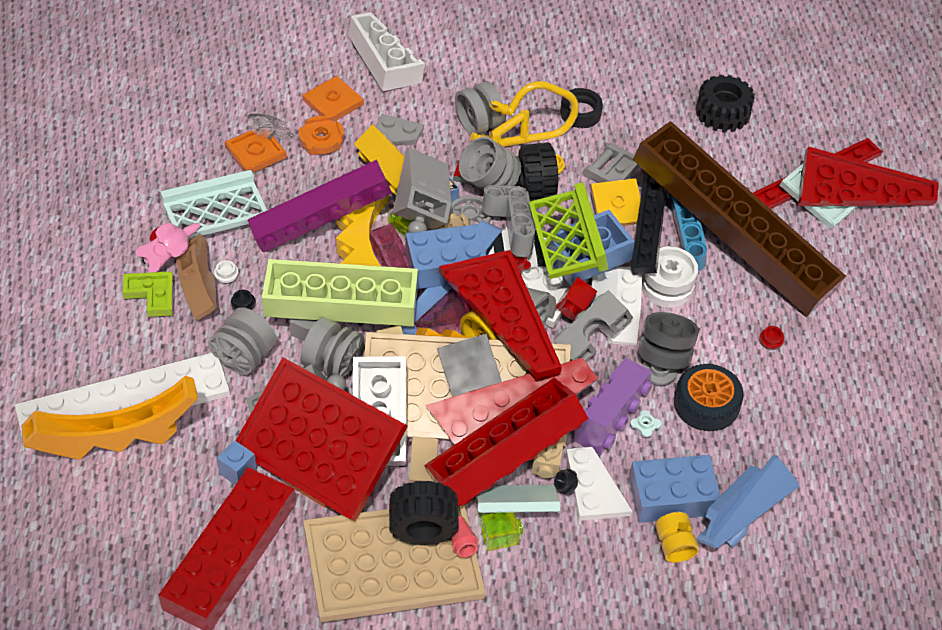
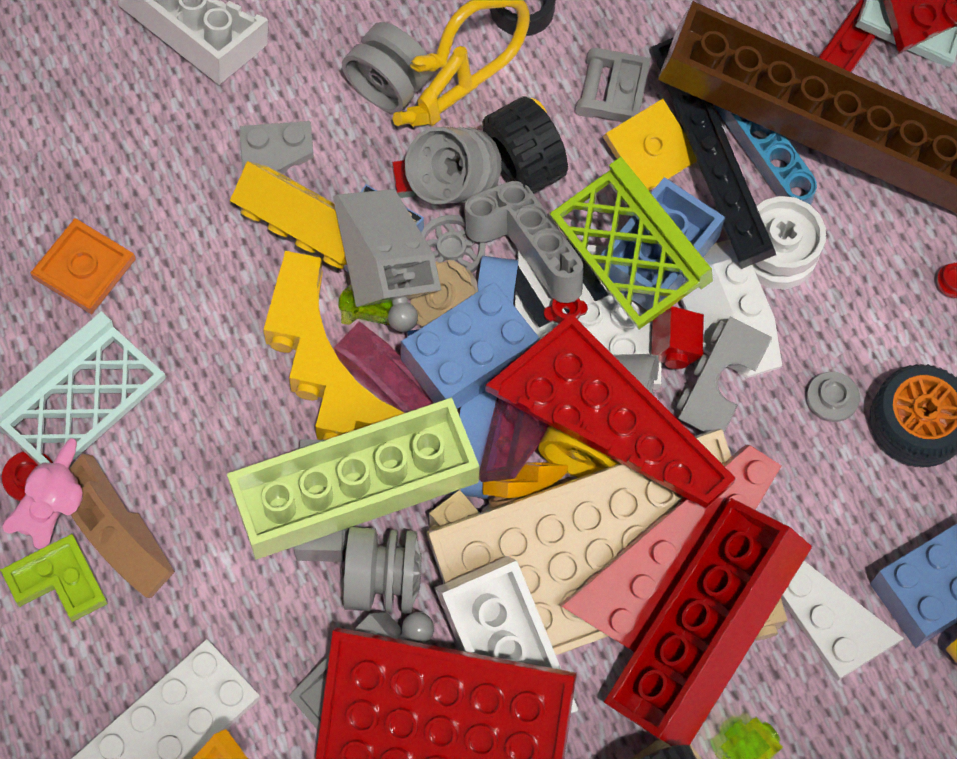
camera: 25 degrees left, 15 degrees up
(226, 271) = (149, 497): white plate -> none
(242, 299) = (200, 536): black plate -> none
(242, 341) = (244, 612): light grey wheel -> none
(269, 126) = (88, 221): clear slope -> none
(314, 144) = (168, 219): orange plate -> none
(319, 206) = (241, 338): magenta brick -> none
(333, 99) = (152, 128): orange plate -> none
(422, 452) = (591, 684): tan tile -> none
(469, 365) = (597, 522): tile -> none
(518, 499) = (760, 692): light aqua tile -> none
(566, 481) = (799, 634): black plate -> none
(612, 406) = (808, 476): medium lavender wedge -> none
(642, 429) = (856, 501): light aqua plate -> none
(668, 340) = (834, 352): dark grey wheel -> none

